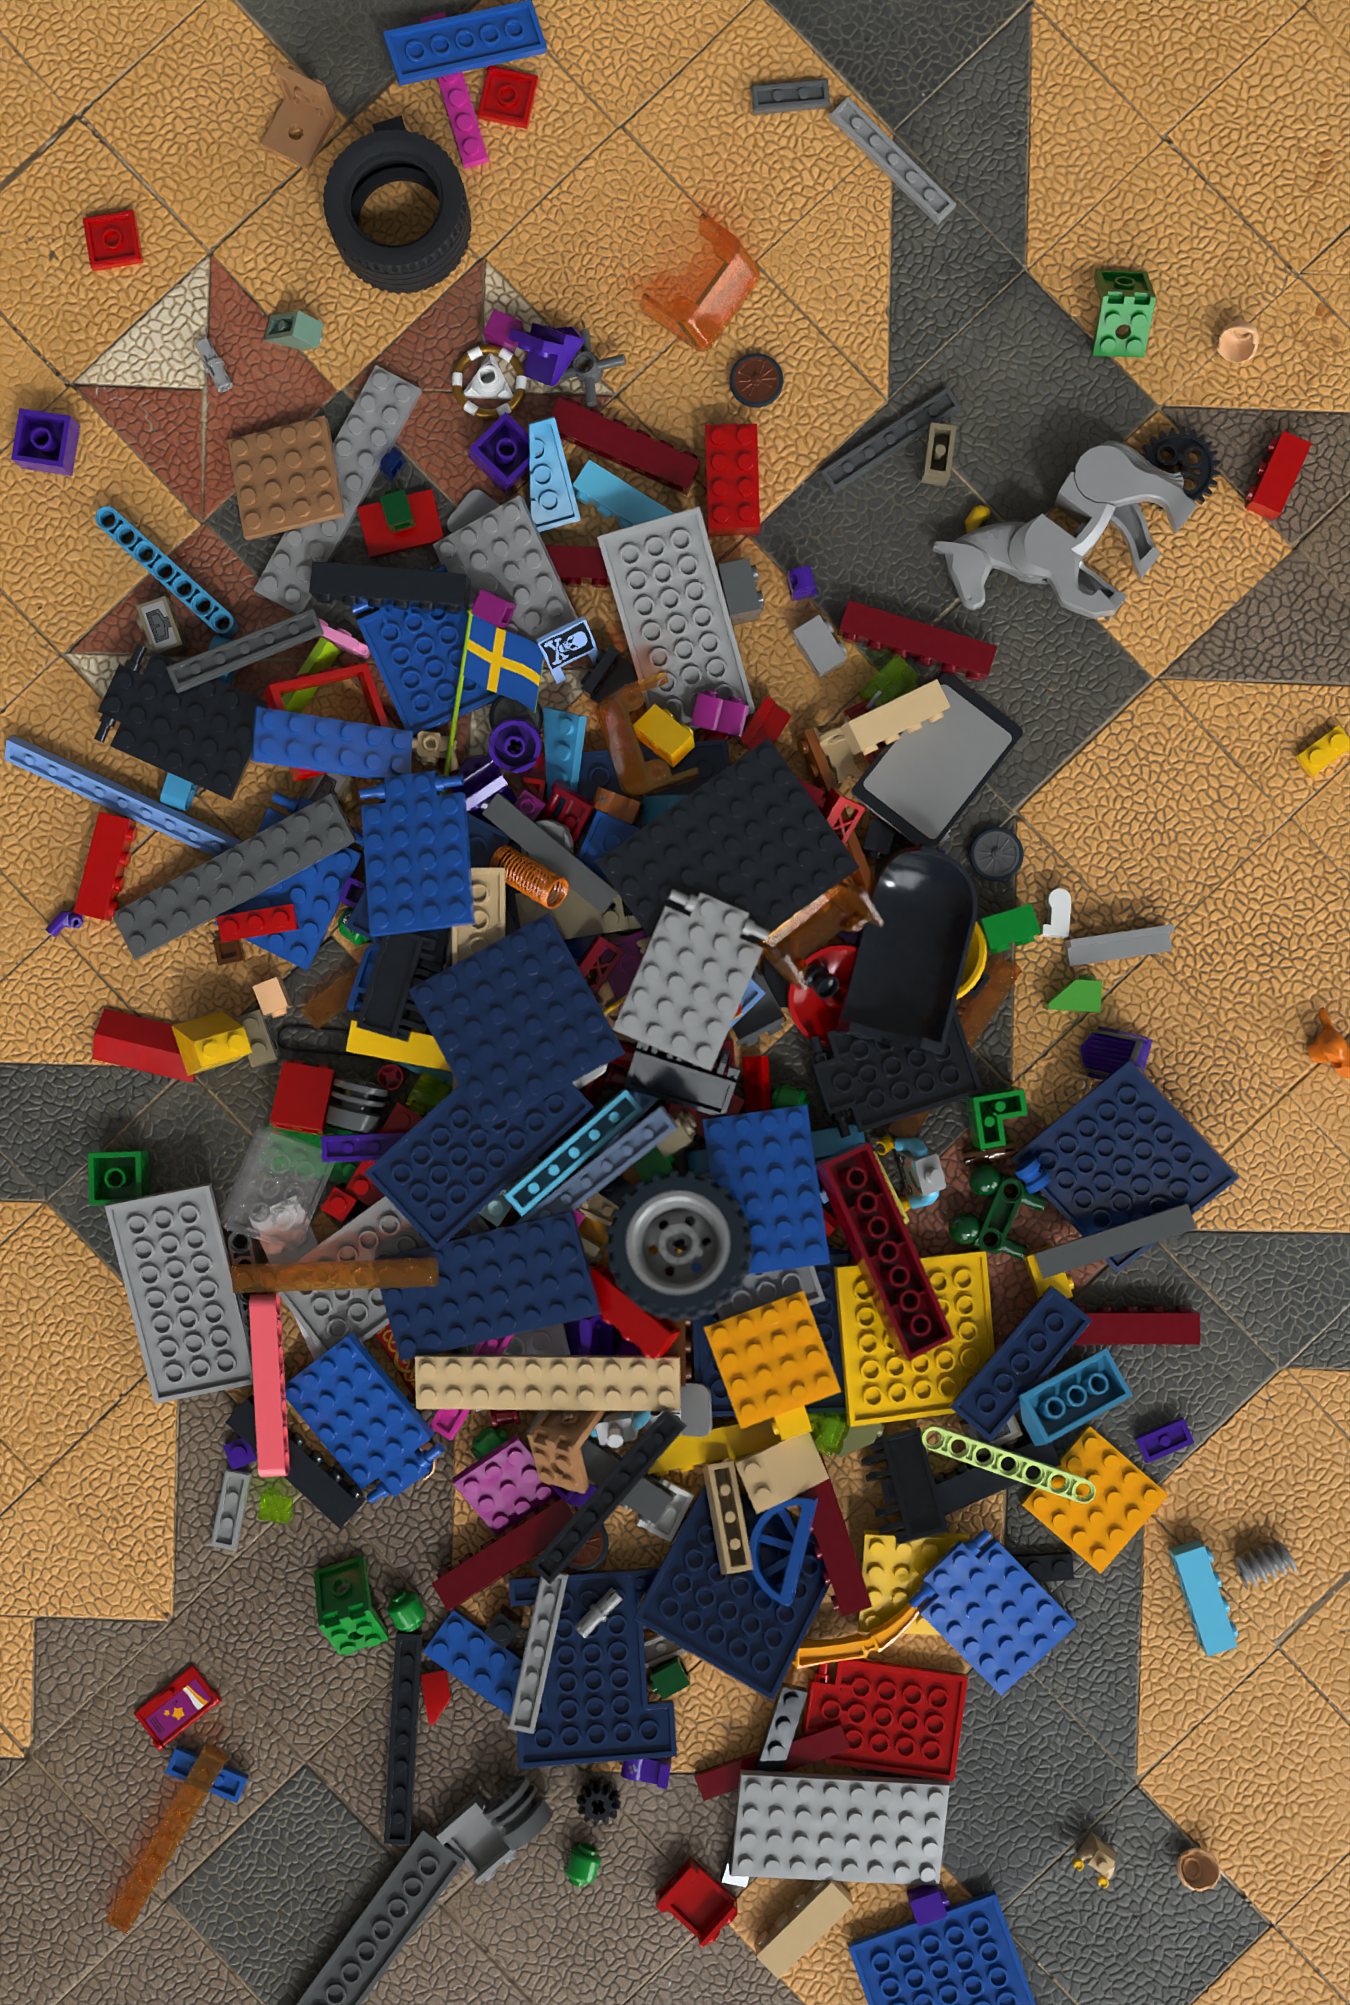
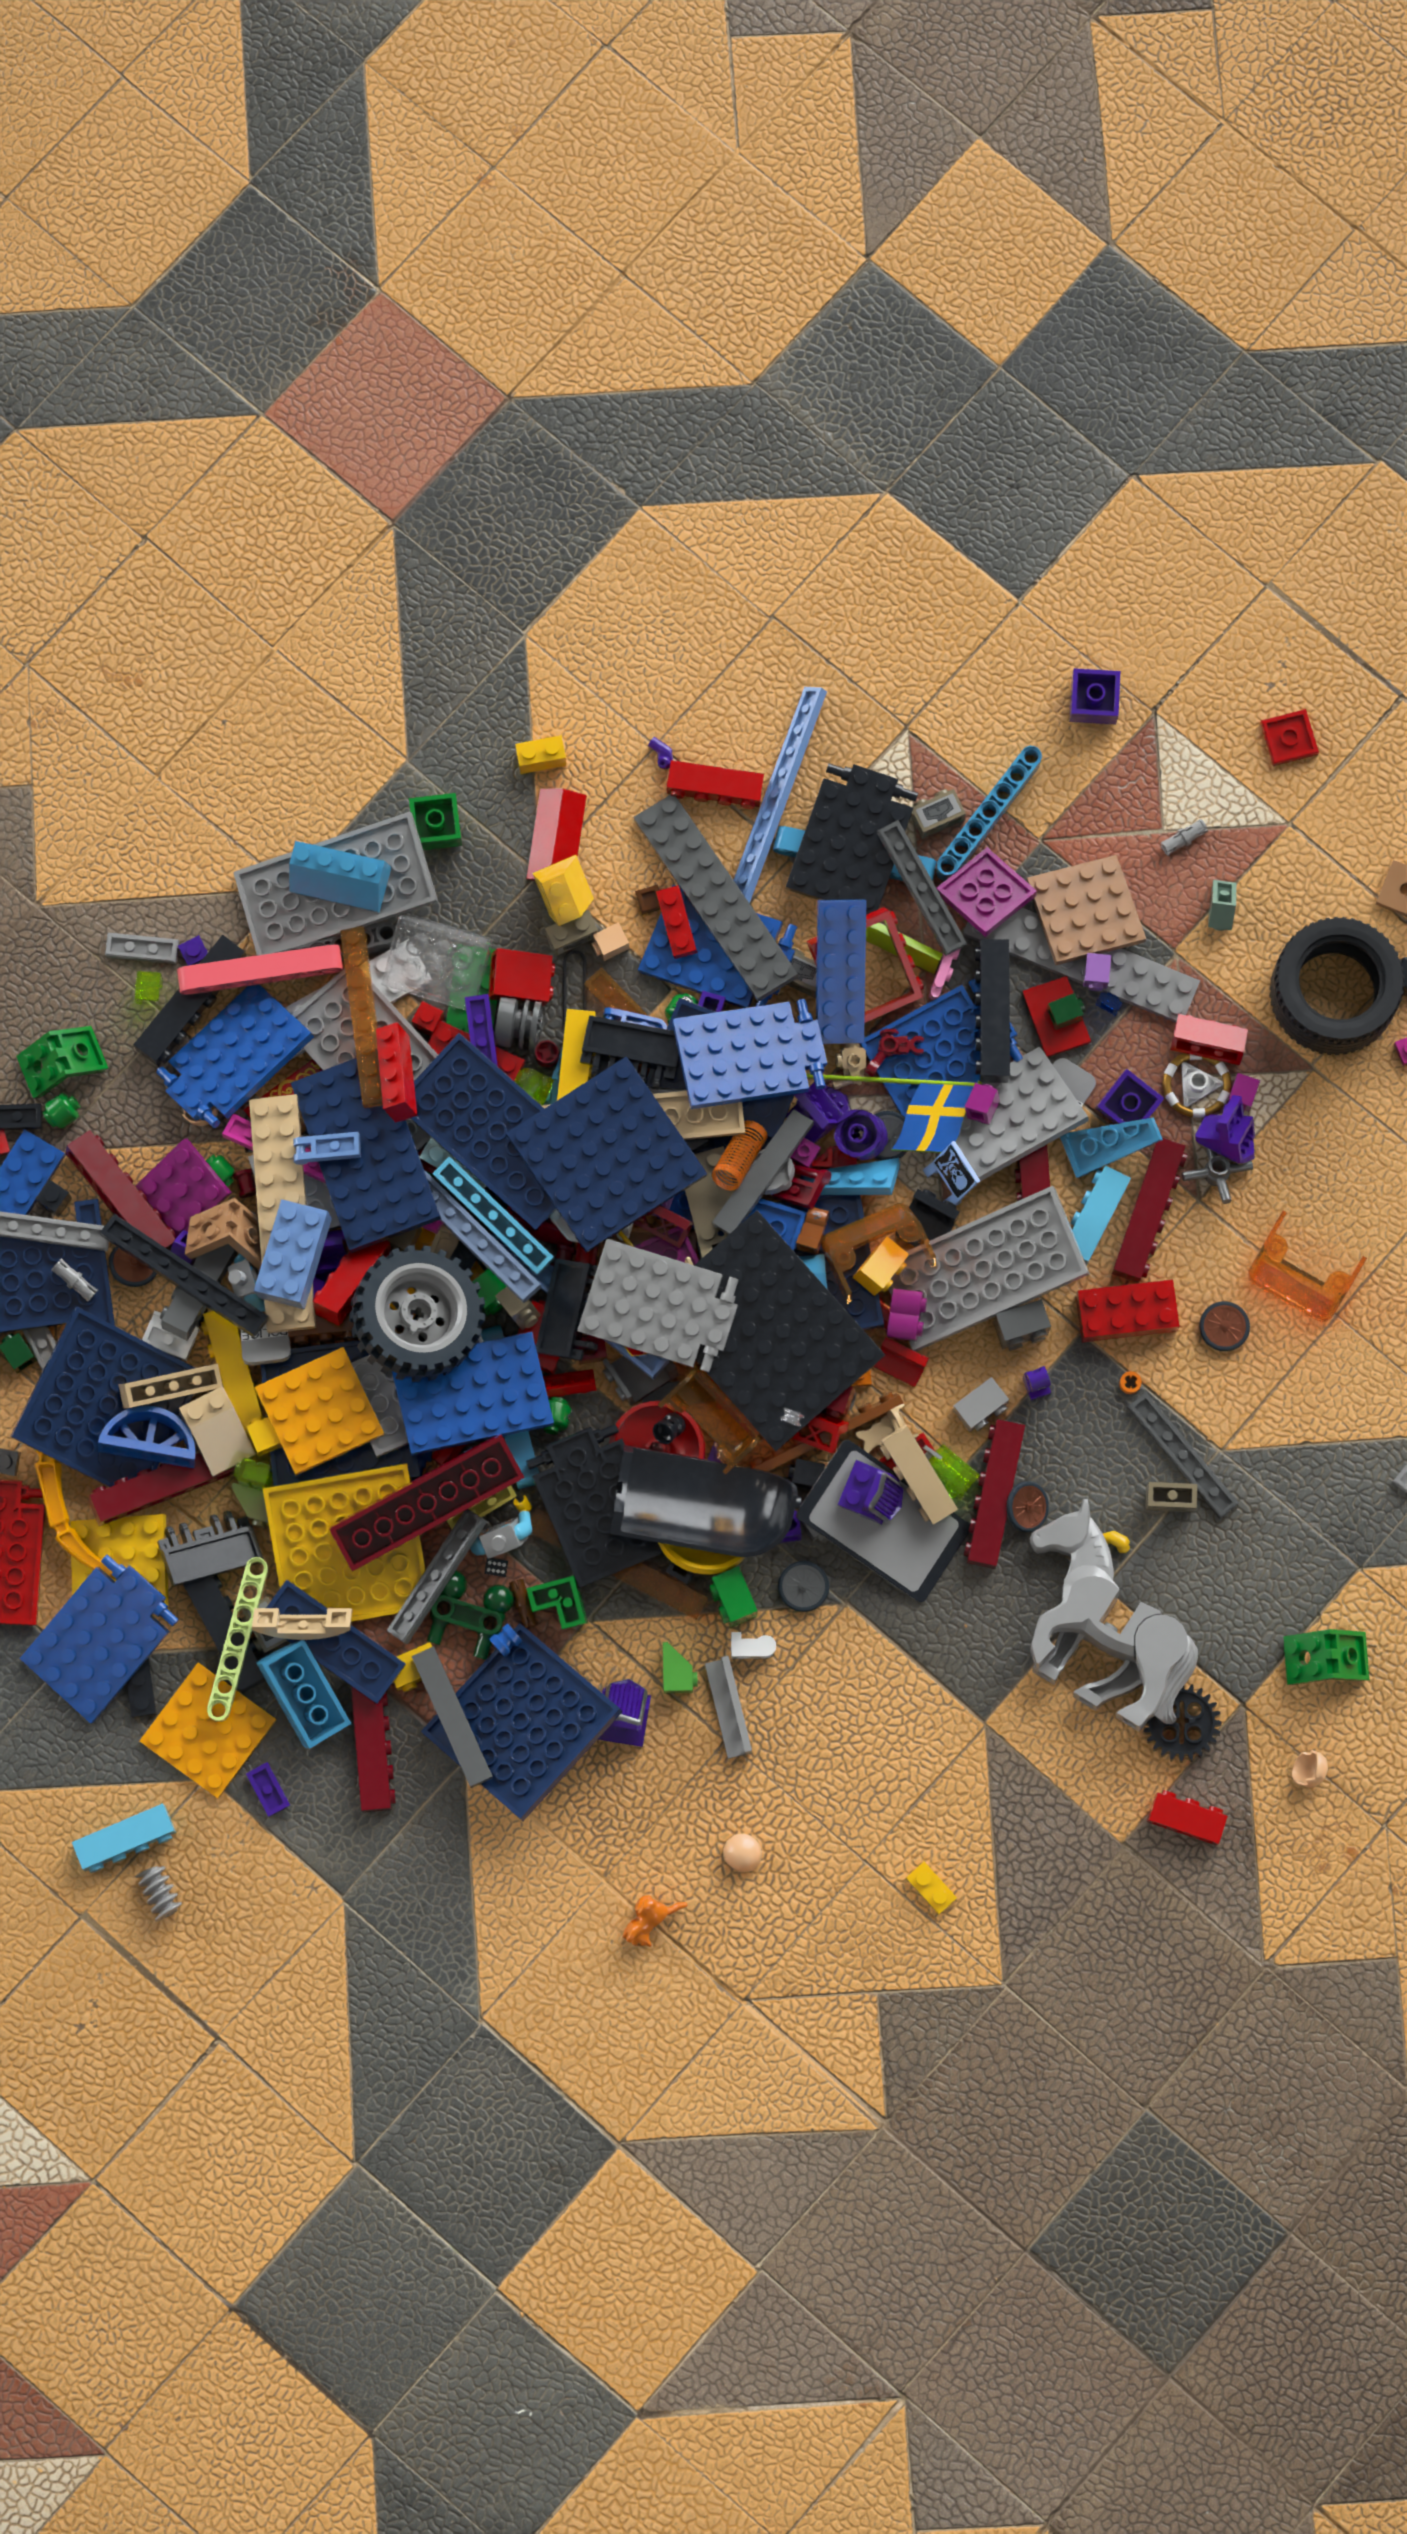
camera: 75 degrees right, 10 degrees down
(53, 1054) = (541, 754): none -> yellow brick
(171, 1291) = (338, 876): none -> dark azure slope
(256, 582) = (986, 892): none -> magenta plate
(356, 470) = (1097, 971): none -> medium lavender brick
(403, 1246) = (396, 1072): none -> red brick
(418, 701) = (893, 1045): none -> dark red piece
(442, 360) = (1209, 1039): none -> brick
(481, 1328) = (327, 1147): none -> medium blue plate
(599, 1378) = (292, 1254): none -> medium blue brick
(807, 495) = (1138, 1382): none -> orange bush
(829, 845) = (792, 1417): none -> clear bush
(912, 770) = (872, 1493): none -> dark purple piece
(934, 608) = (1027, 1506): none -> copper wheel
(949, 1174) = (496, 1567): none -> black sticker
(958, 1244) = (436, 1576): none -> dark grey tile
(1006, 1396) = (301, 1627): none -> tan slope
(1272, 944) = (742, 1853): none -> light nougat hair

